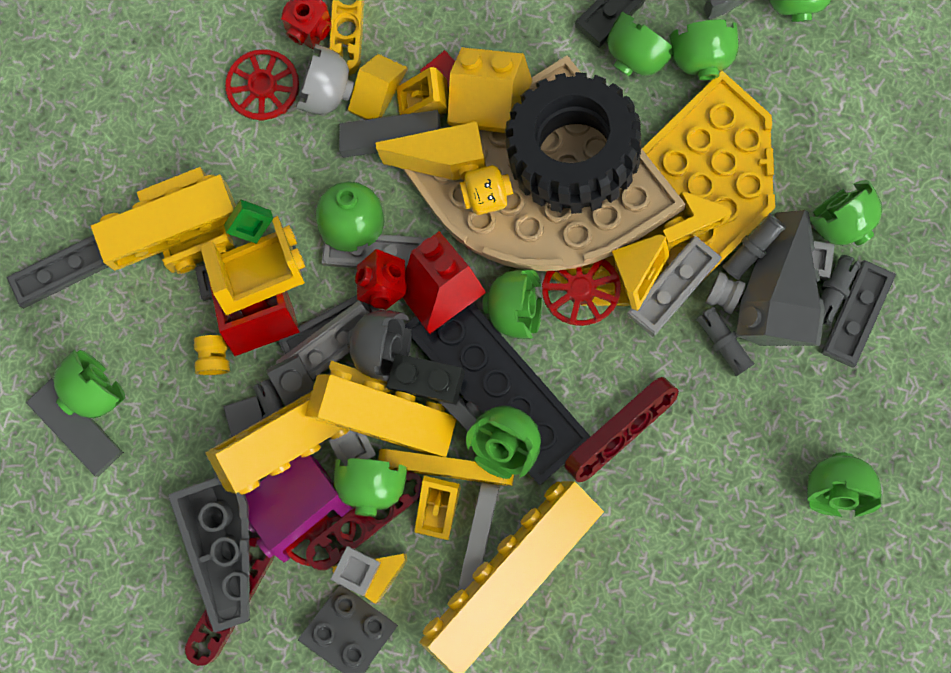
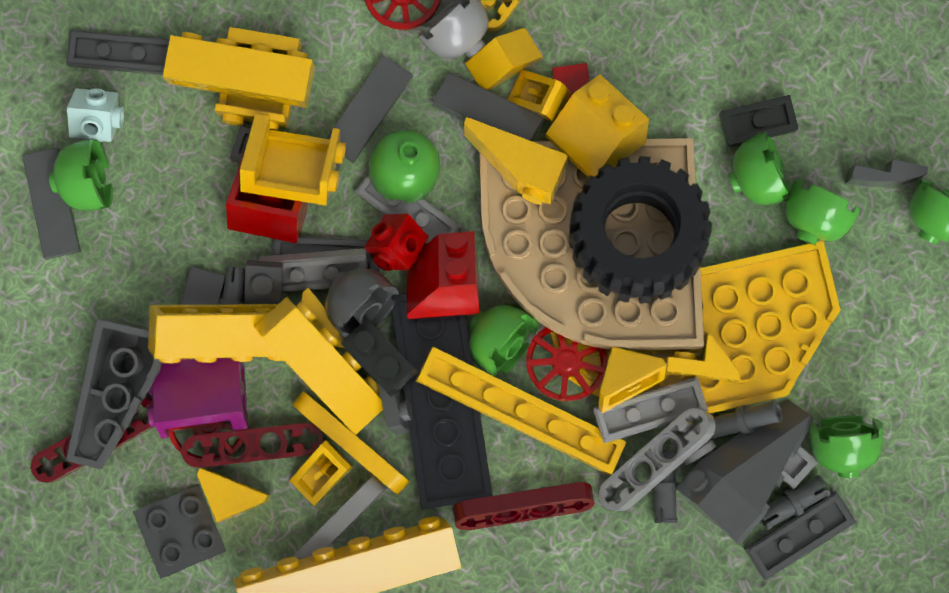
camera: 25 degrees right, 5 degrees up
(66, 330) = (94, 114): none -> light aqua brick
(211, 355) = (207, 215): yellow wheel -> none
(248, 221) = (311, 118): green plate -> none
(293, 187) = (371, 106): none -> dark grey tile
(352, 446) = (278, 377): light grey plate -> none
(355, 571) = (217, 485): light grey plate -> none
(368, 484) = (272, 419): bright green cylinder -> none
(486, 190) = (536, 222): yellow head -> none
(504, 441) = (412, 455): bright green cylinder -> none
(568, 352) = (519, 410): none -> yellow plate
(711, 324) = (659, 464): none -> light grey beam

